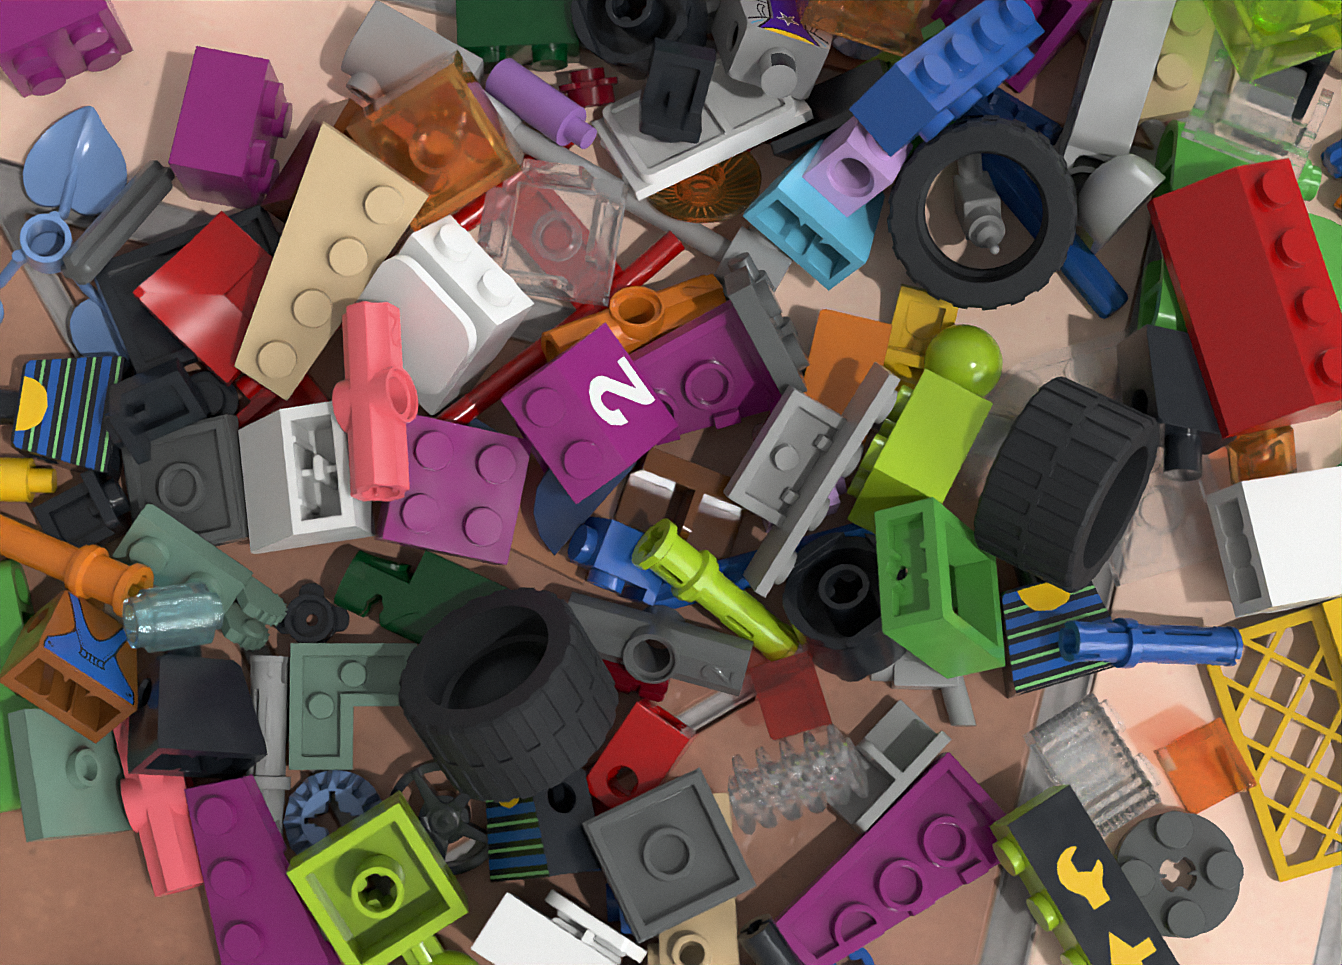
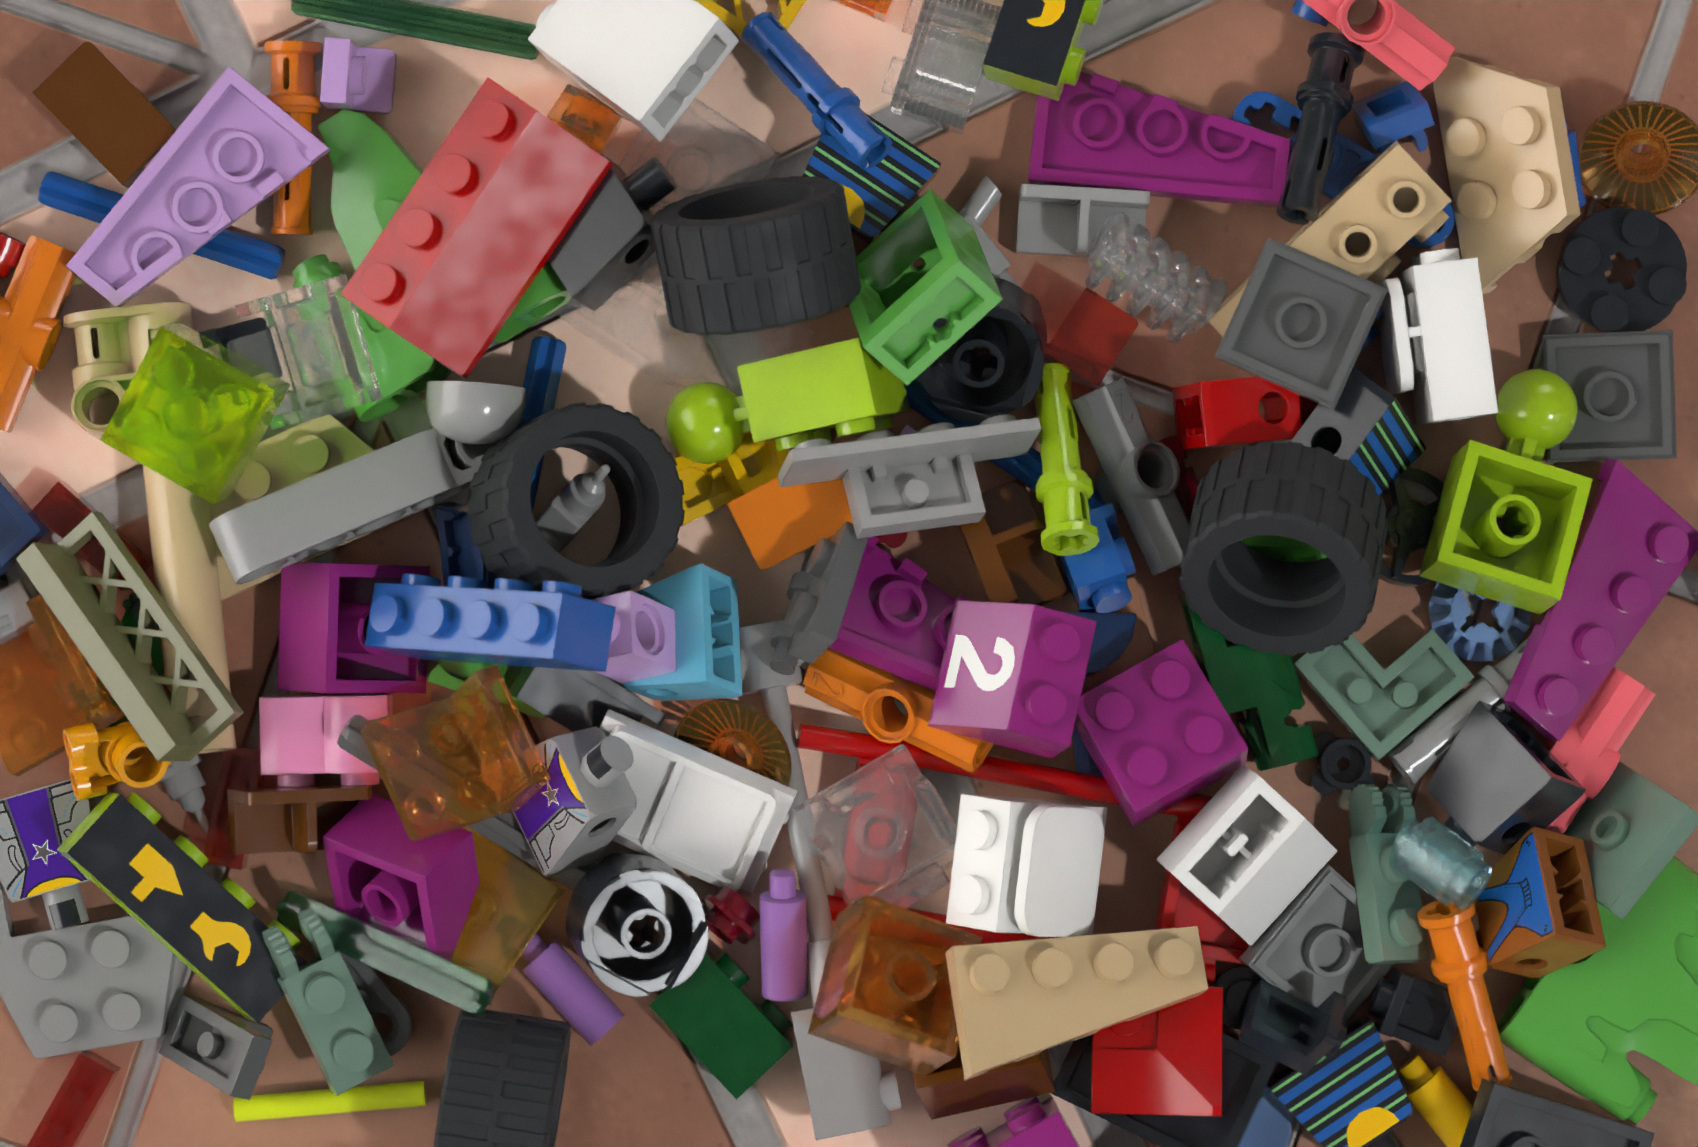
camera: 130 degrees left, 10 degrees up
(375, 402) = (1150, 844): coral piece -> none
(675, 91) = (690, 832): black bracket -> none

